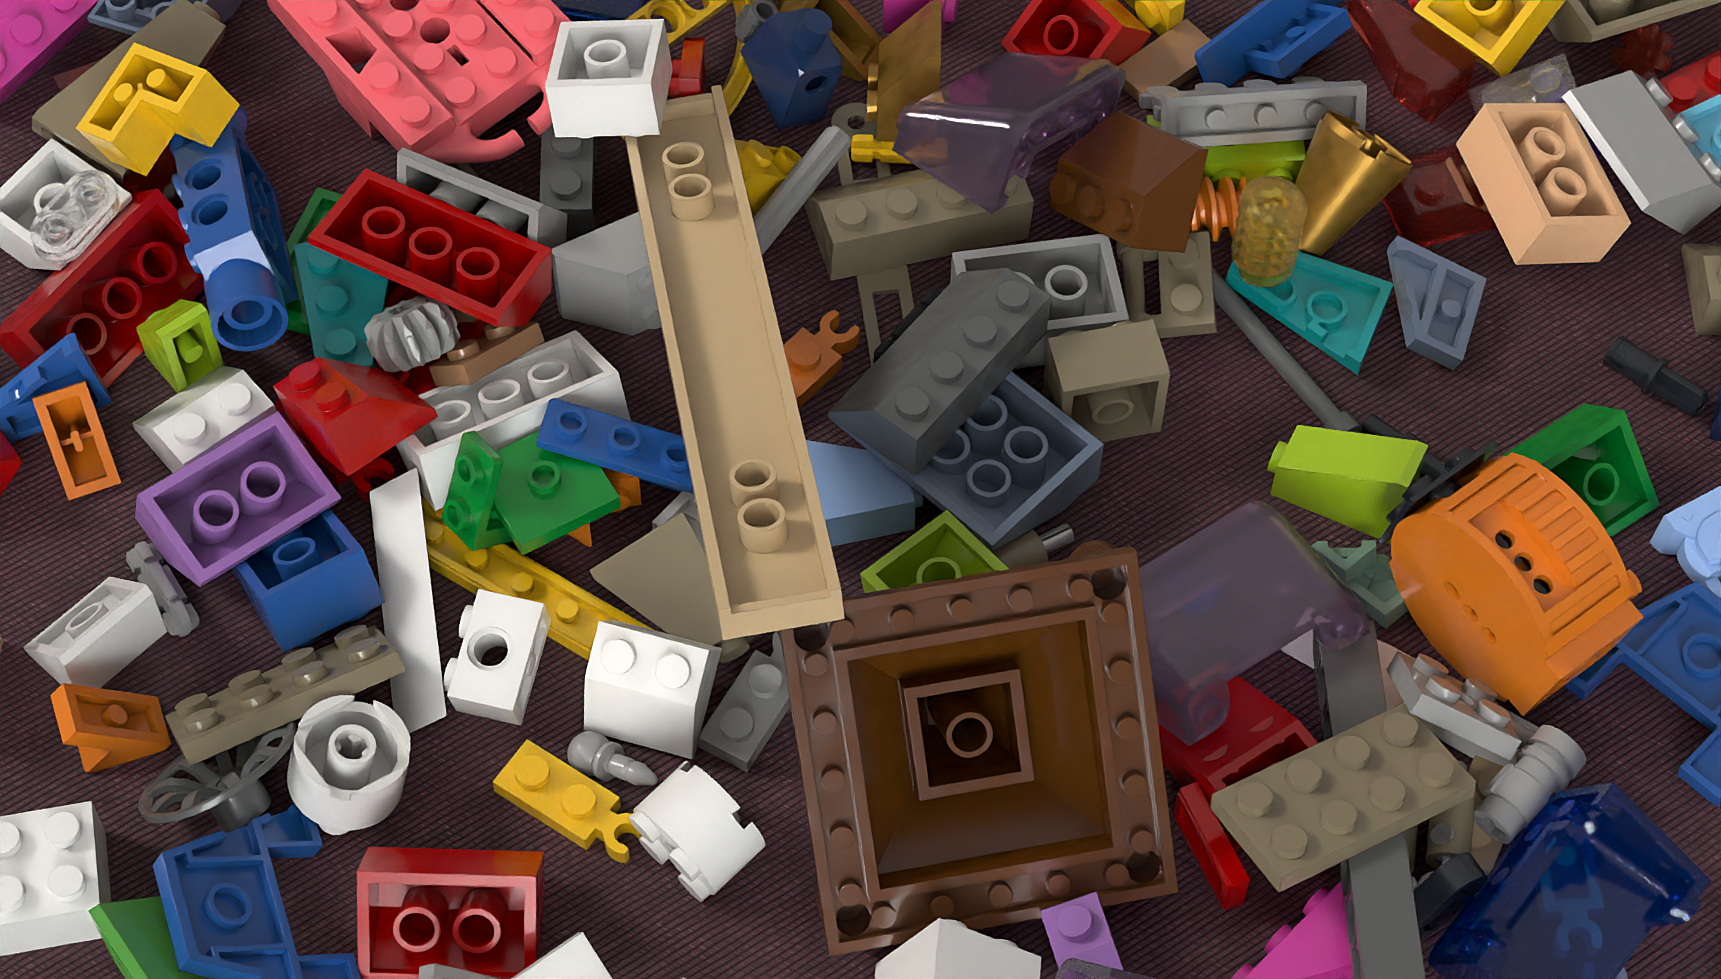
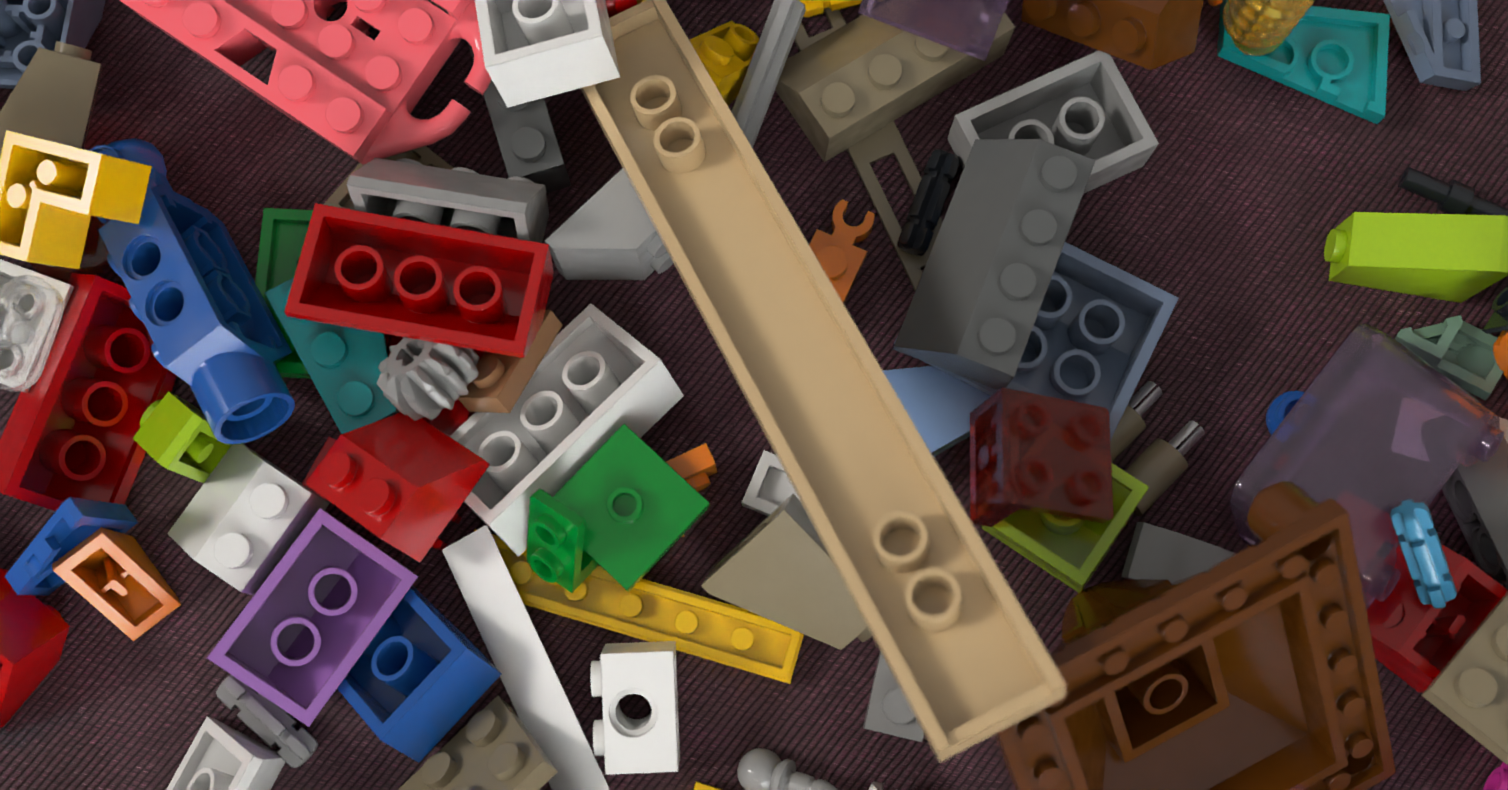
camera: 15 degrees left, 20 degrees up
(616, 444) = (685, 441): blue bracket -> none
(648, 687) = (807, 693): white slope -> none
(928, 524) = (1039, 458): none -> clear red bracket
(1109, 379) = (1154, 214): dark tan brick -> none
(1184, 287) = (1187, 87): dark tan plate -> none
(1210, 846) = (1412, 711): red tile -> none
(1247, 687) = (1423, 553): none -> dark azure axle
(1281, 359) = (1380, 191): dark grey bar -> none

